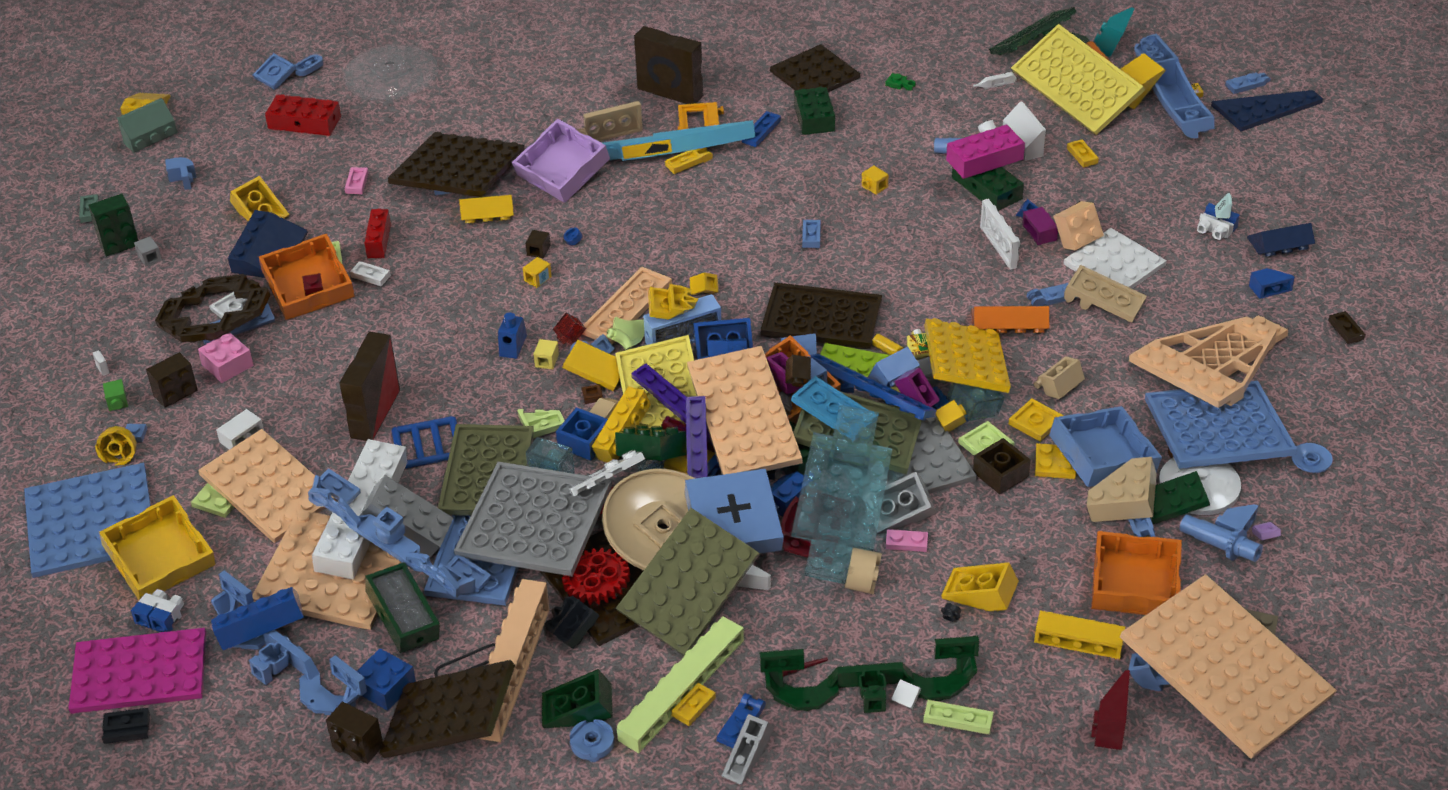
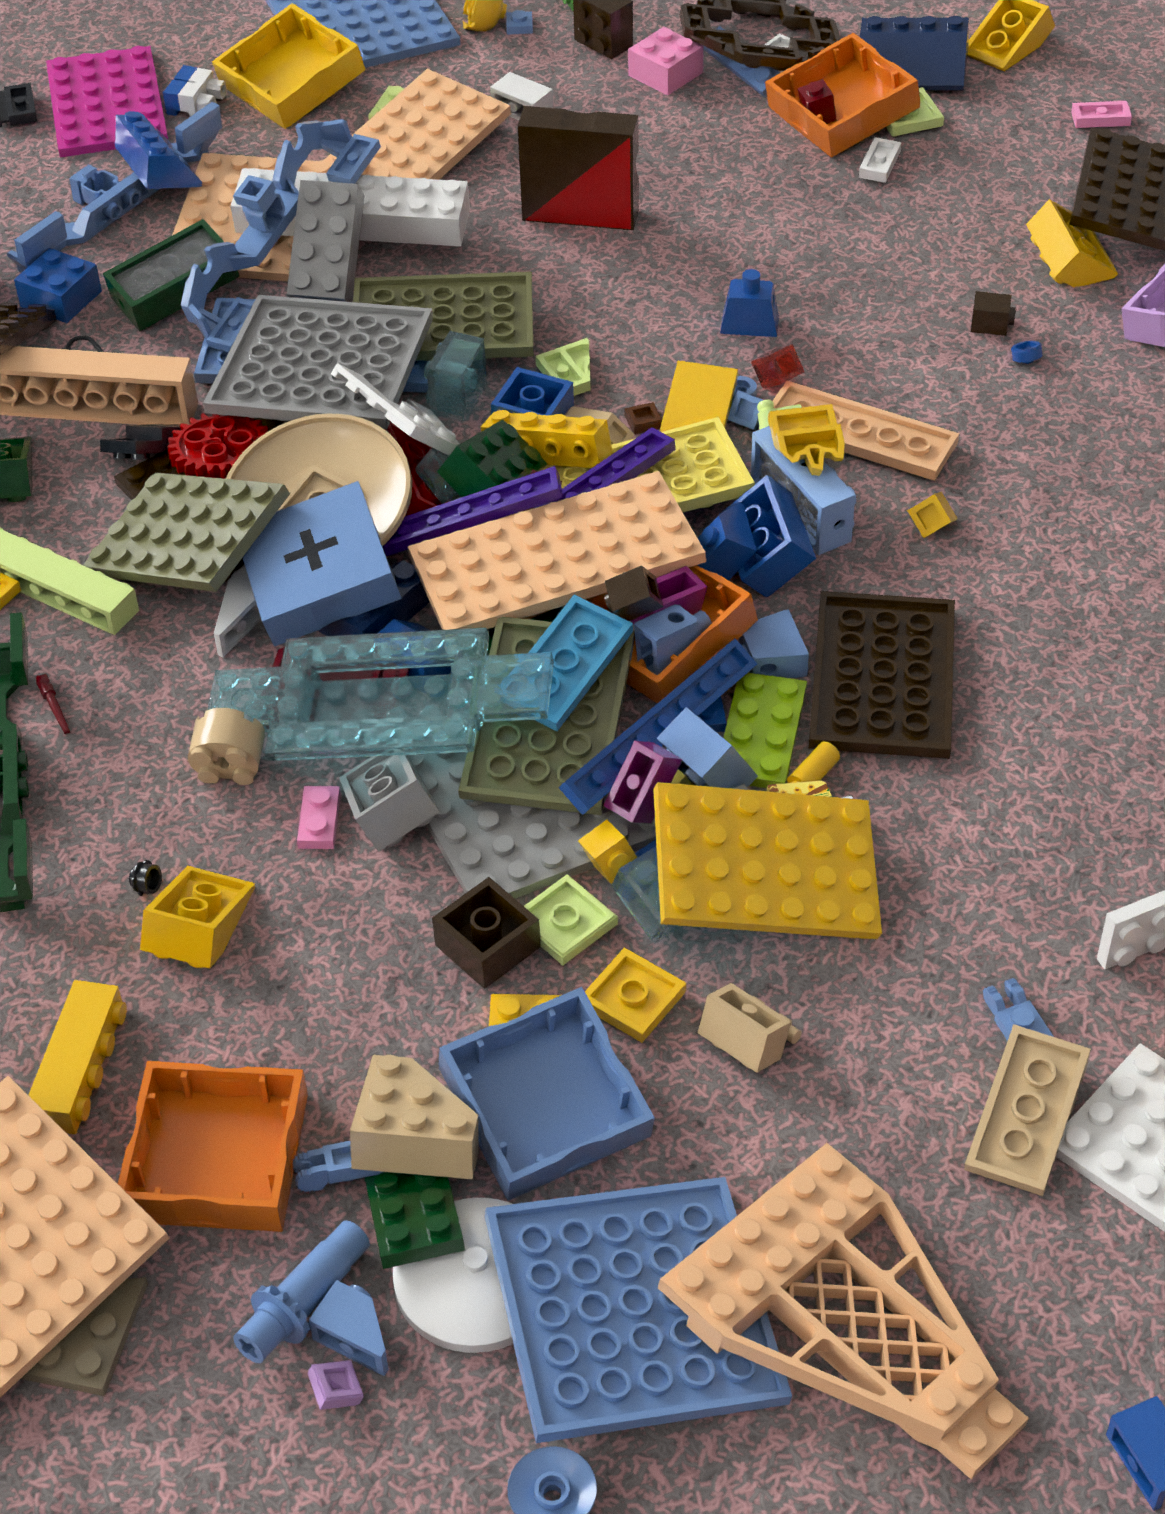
camera: 85 degrees right, 5 degrees up
(377, 233) = (970, 148): red brick -> none
(414, 429) = (548, 251): blue bar -> none
(537, 272) = (919, 321): yellow brick -> none
(546, 354) = (722, 350): light yellow brick -> none
(811, 234) = (1116, 644): medium blue plate -> none
(1011, 318) = (924, 949): orange slope -> none

